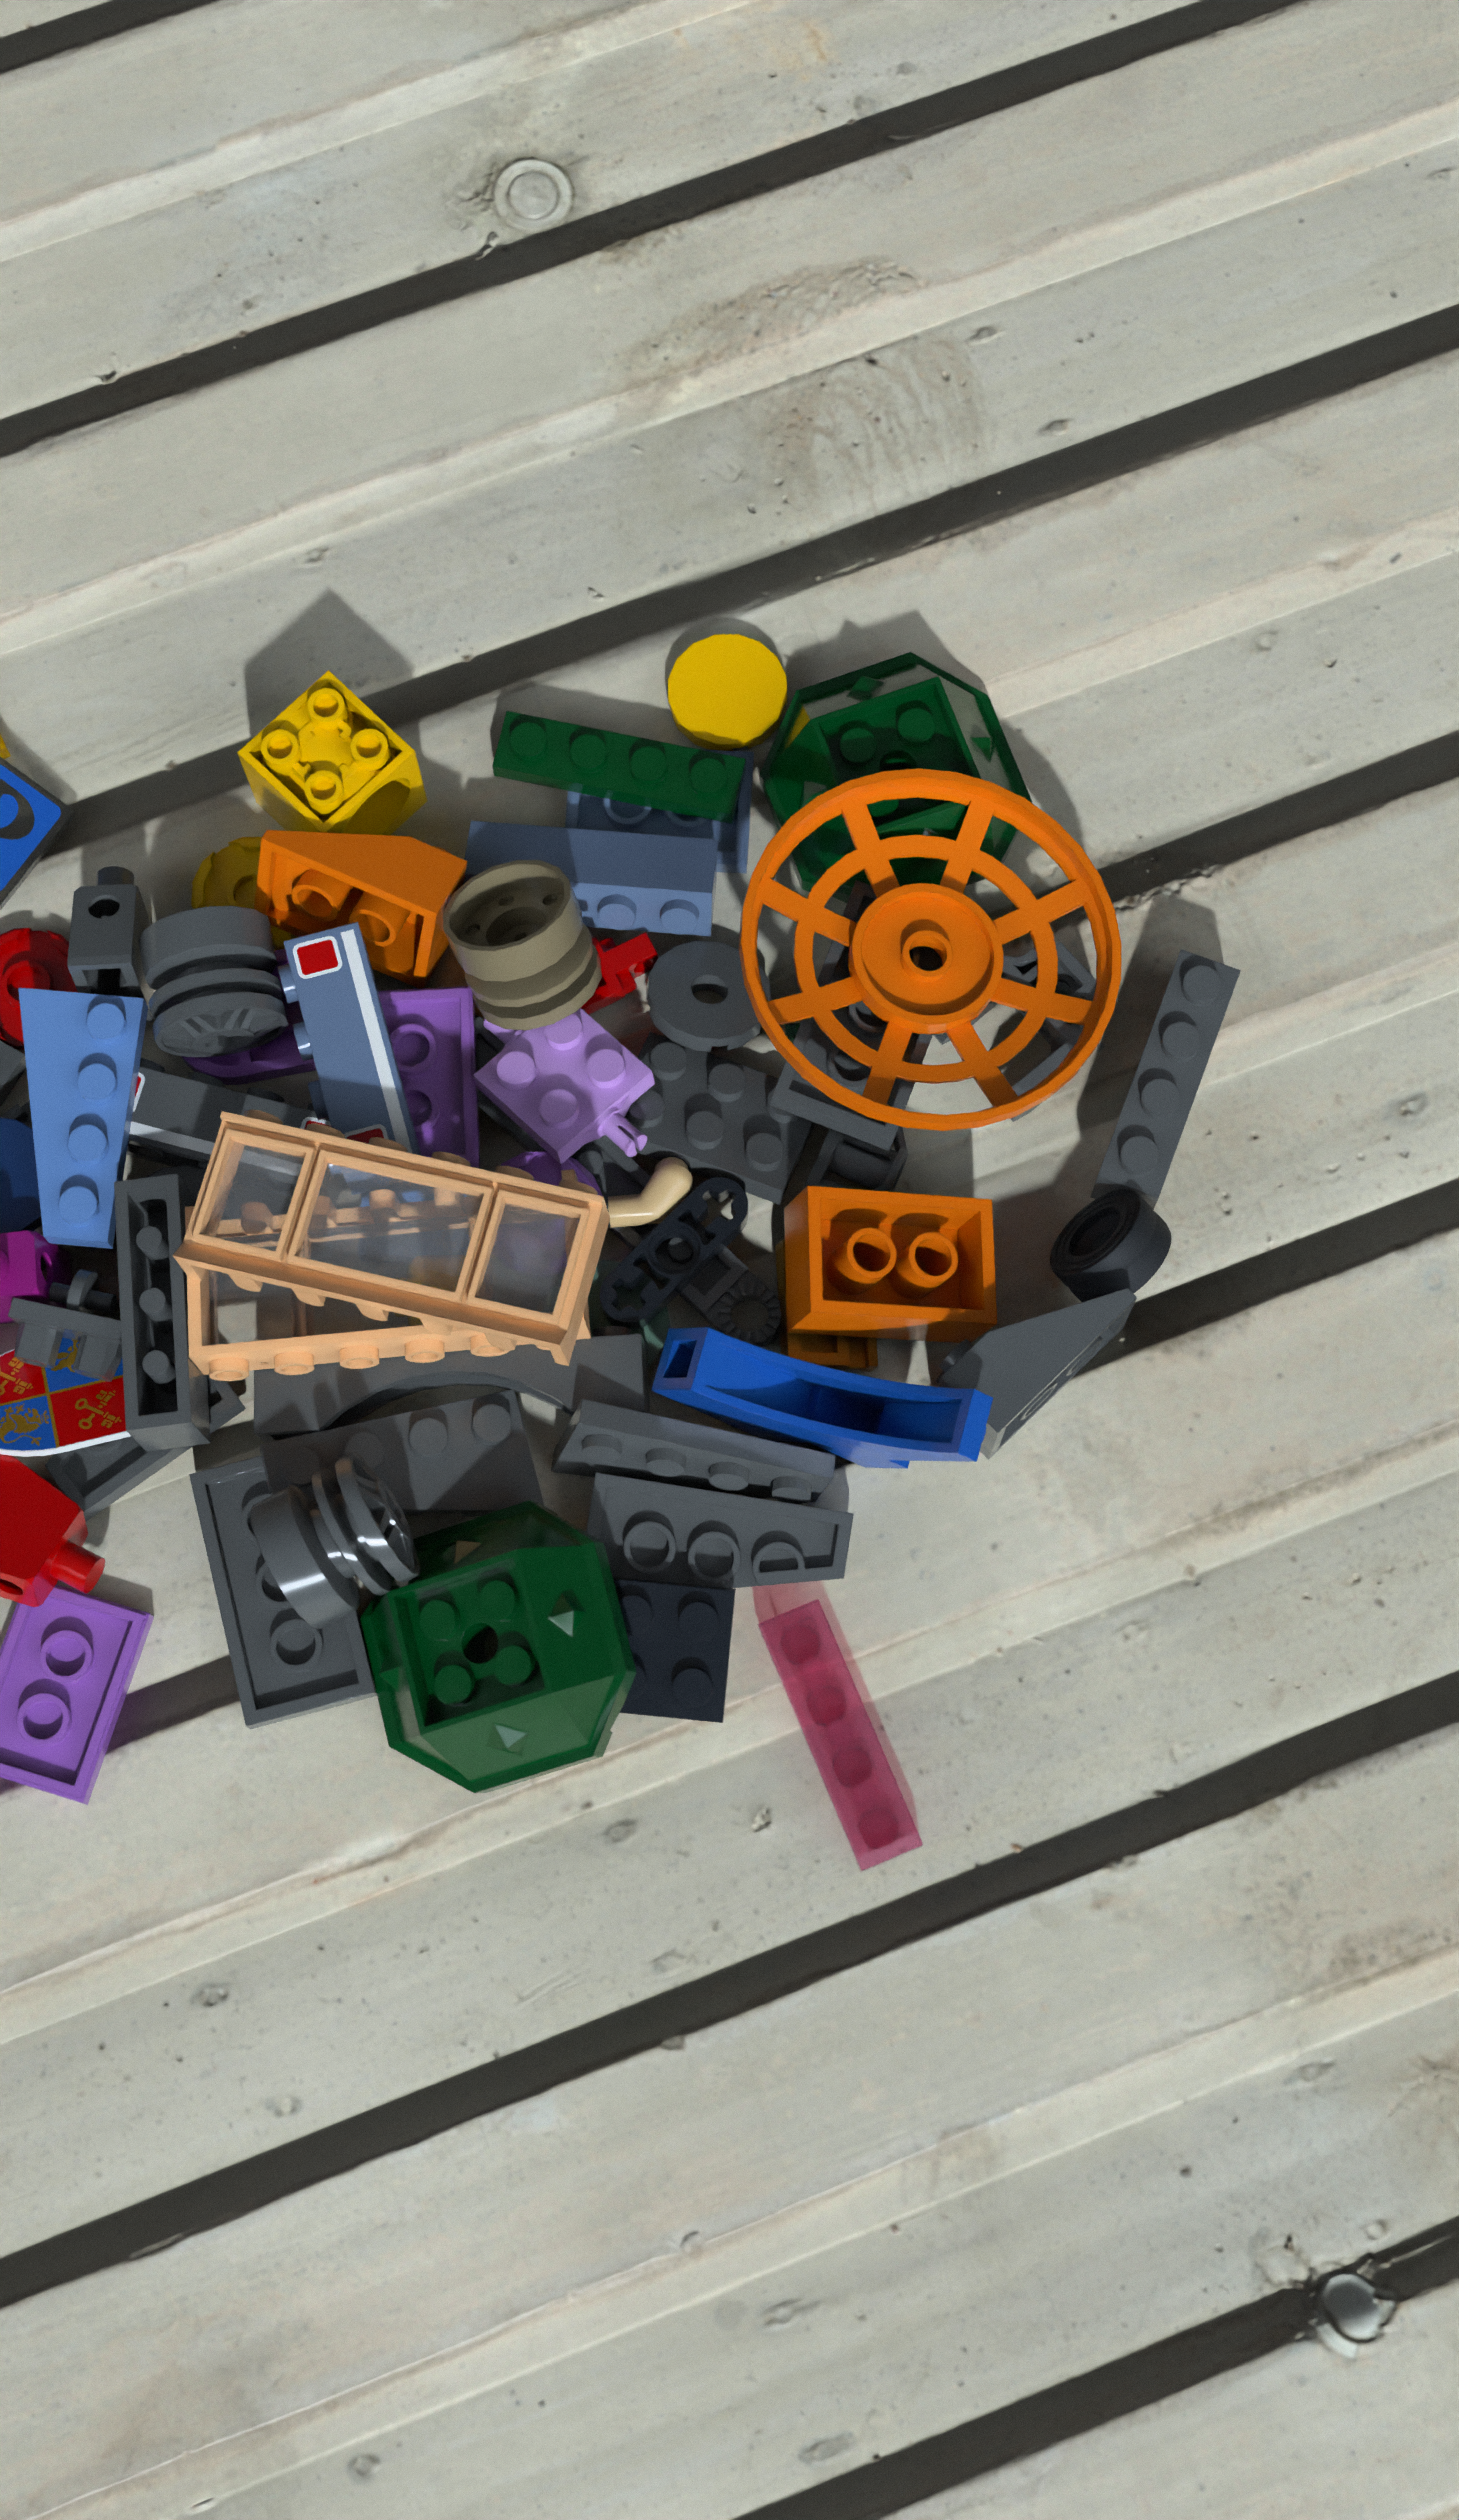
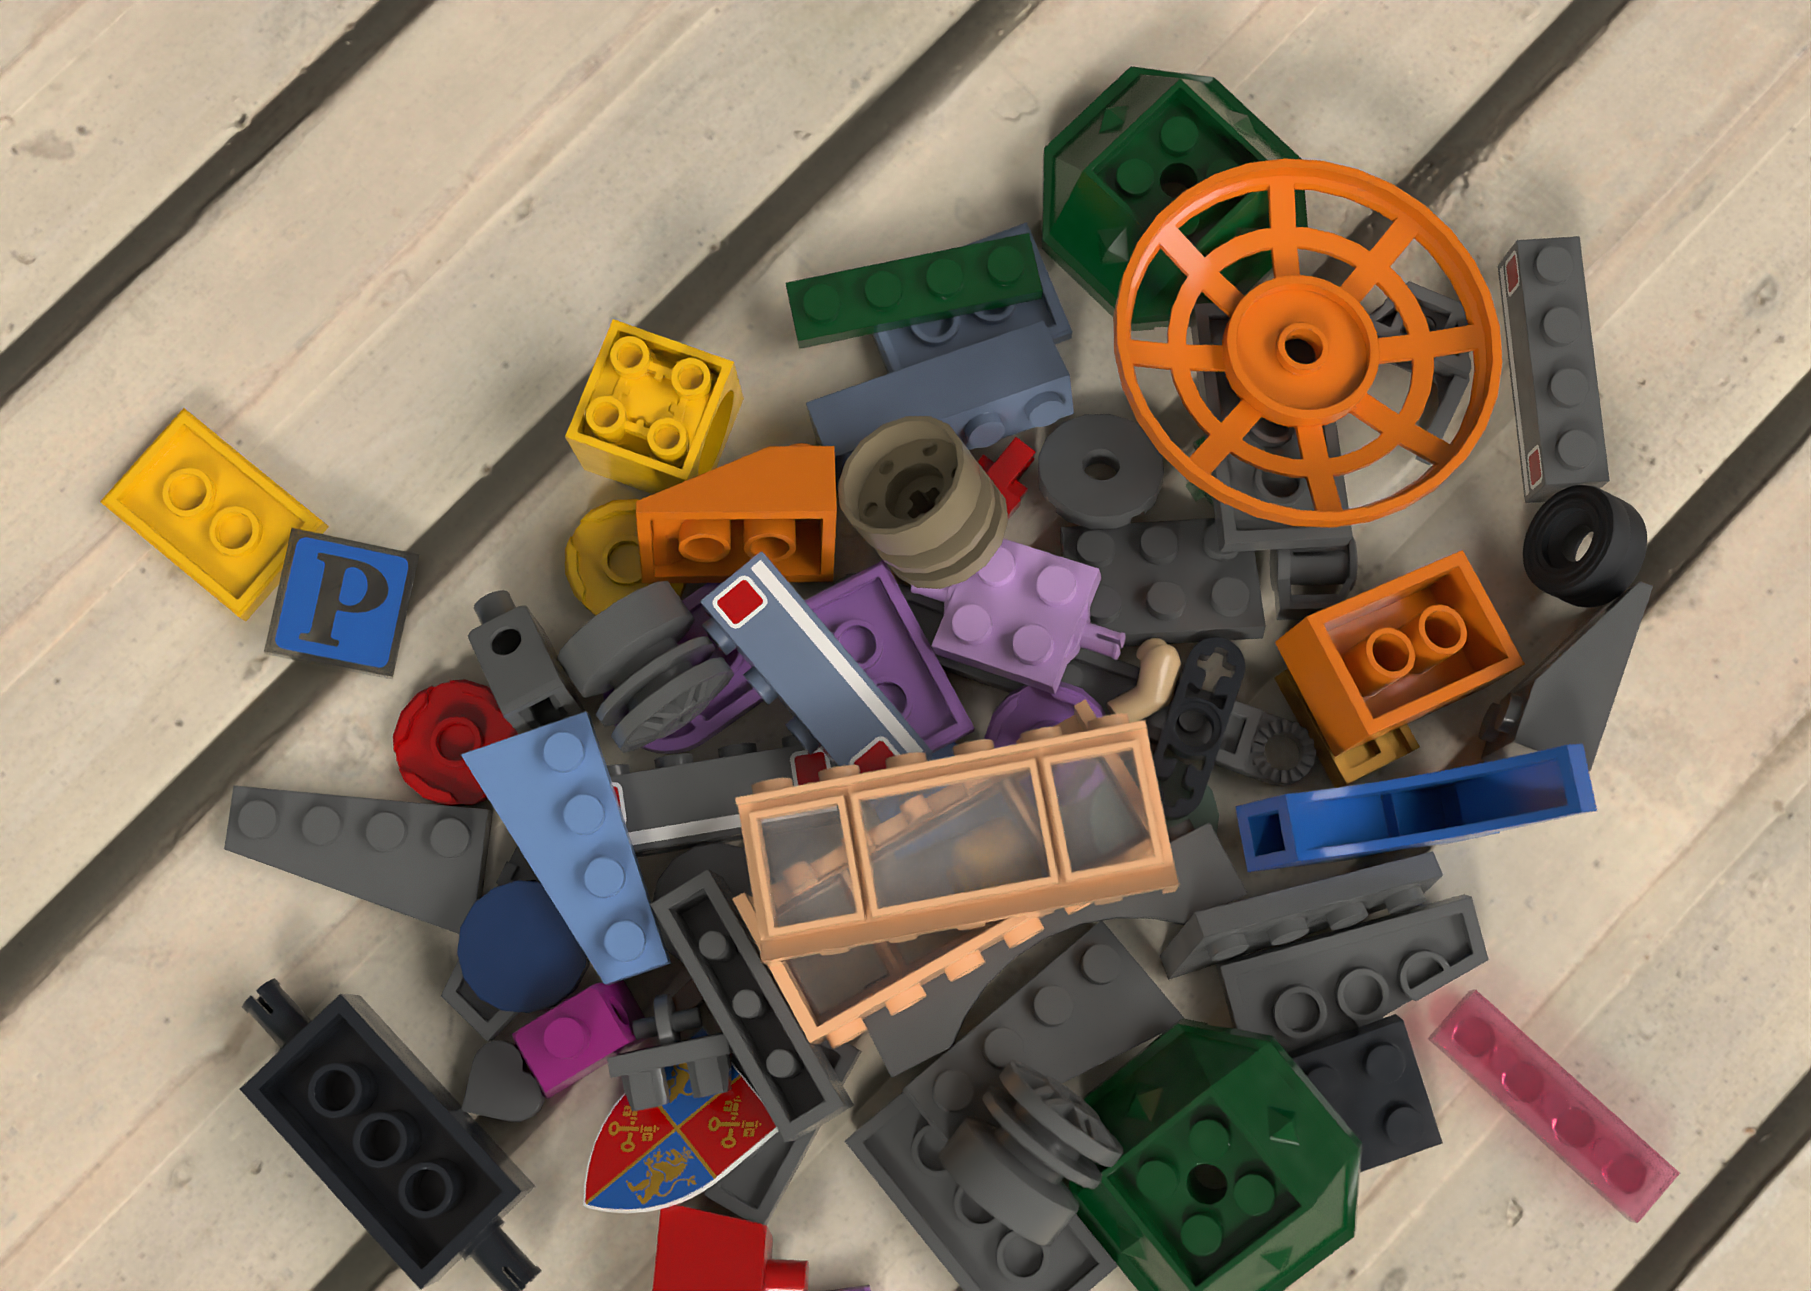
camera: 25 degrees left, 5 degrees up
(727, 692) = (973, 176): yellow tile -> none

